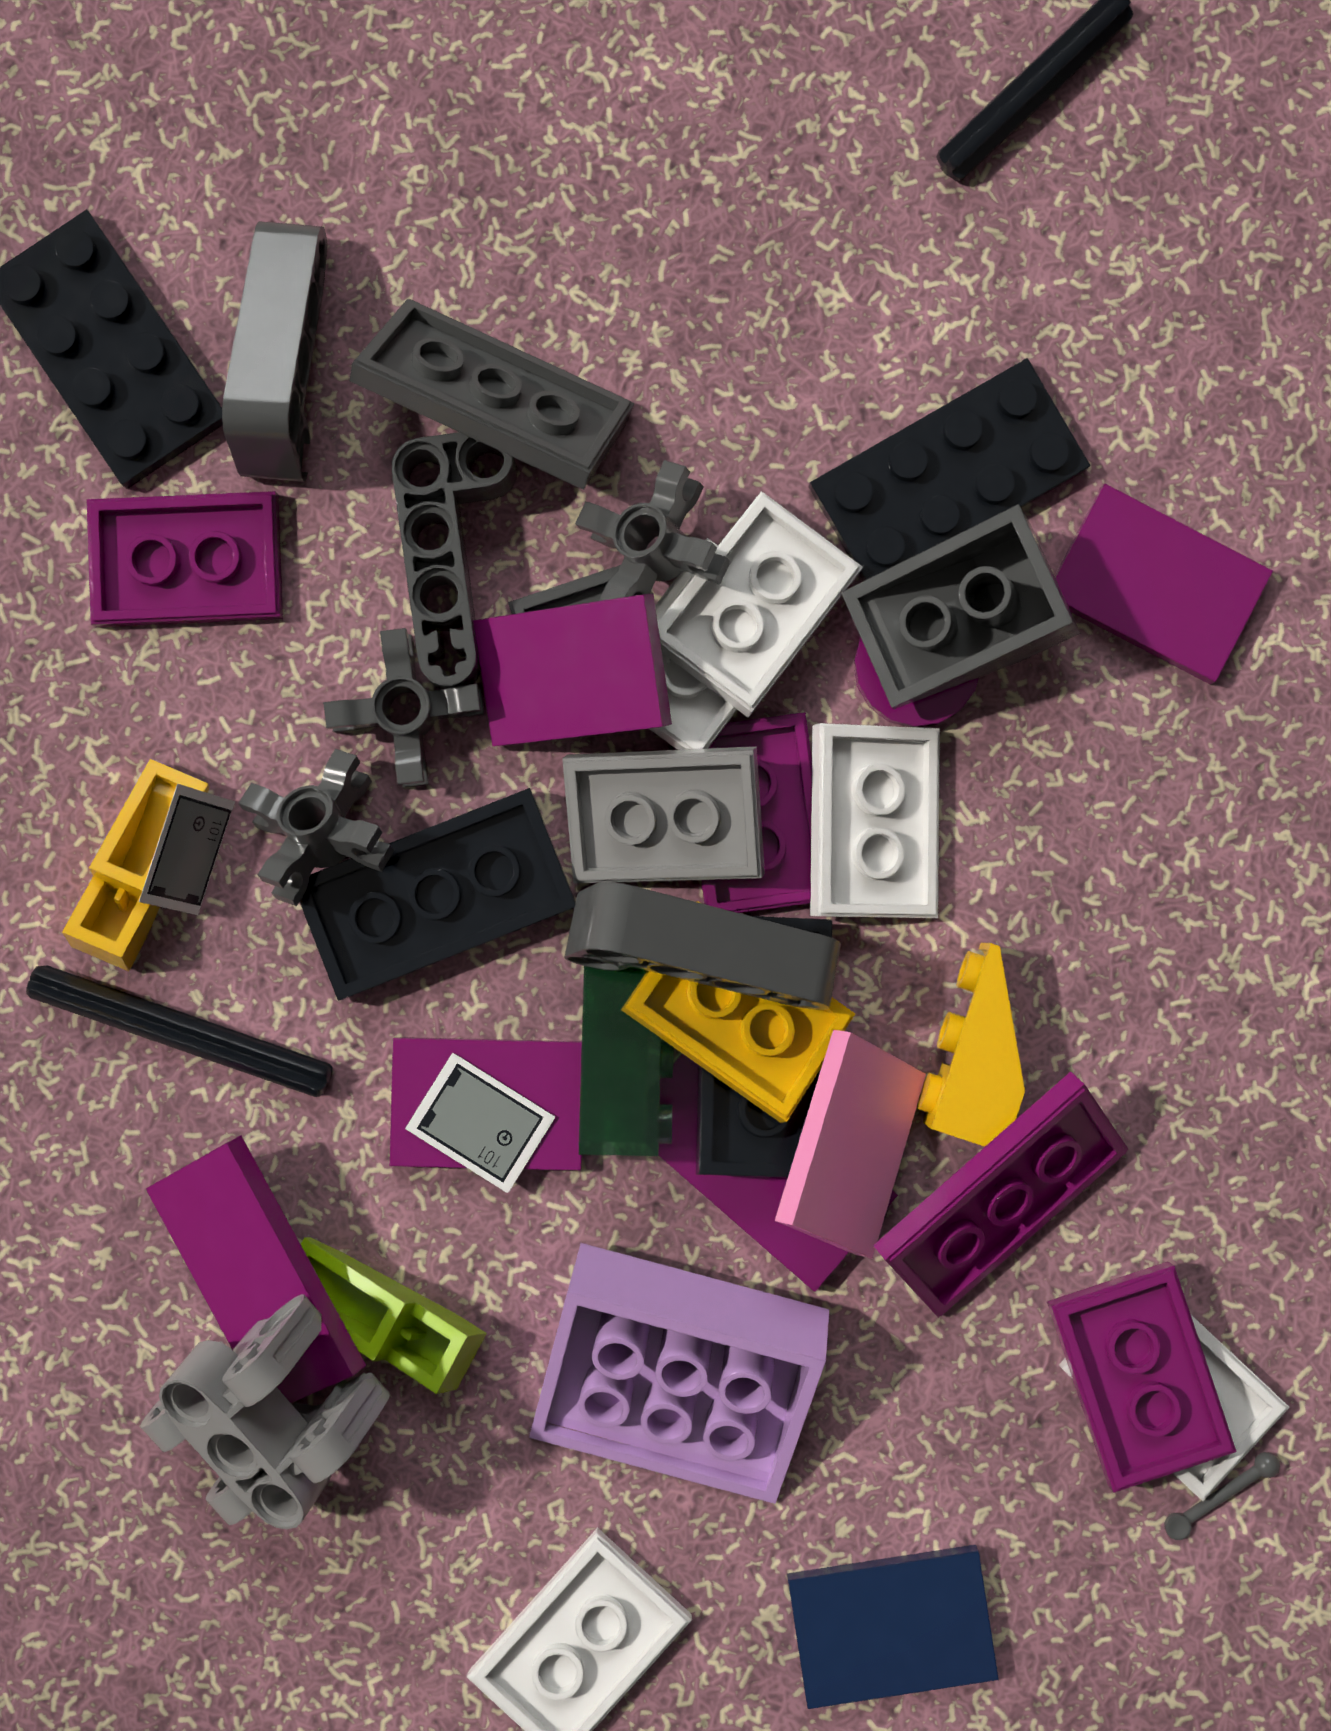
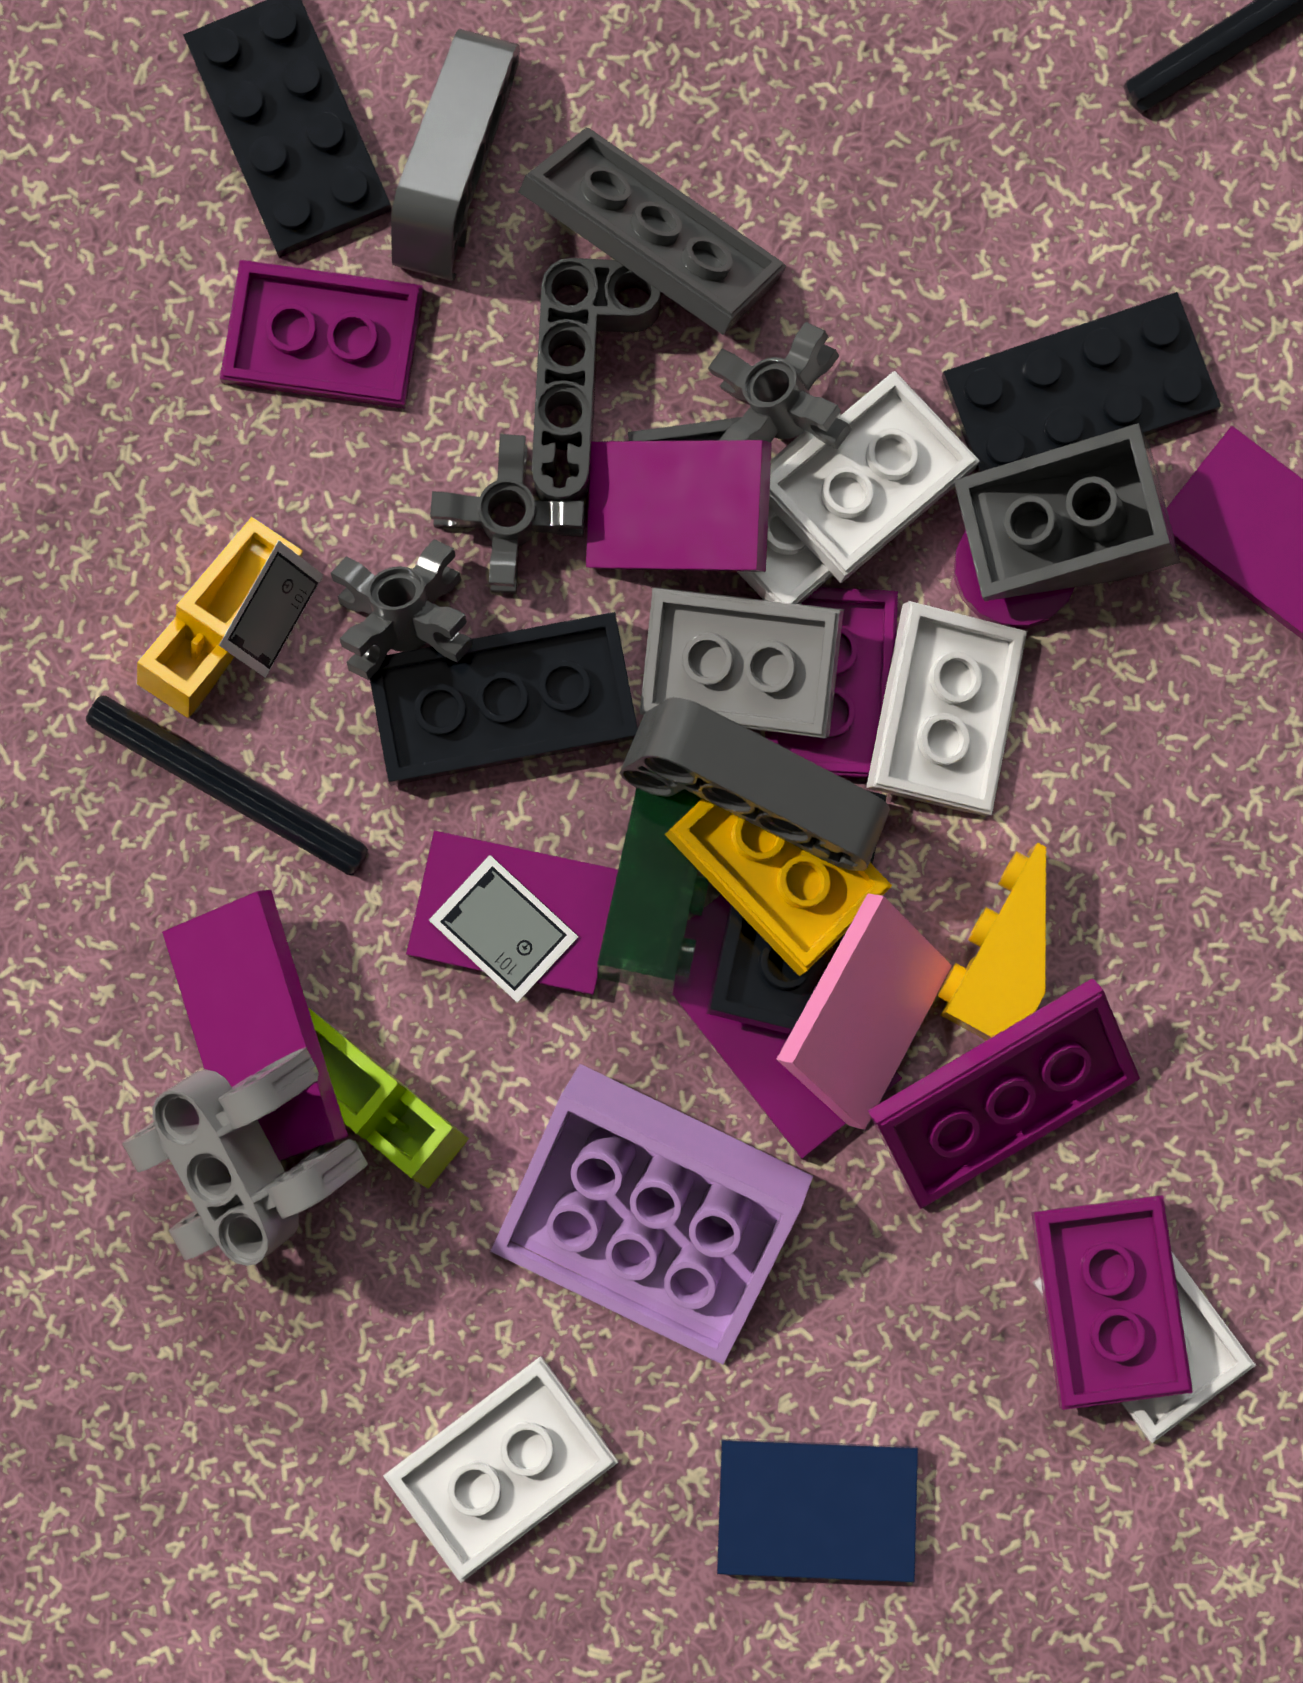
camera: 15 degrees right, 5 degrees down
(1179, 1525) = (1124, 1466): dark grey hinge -> none

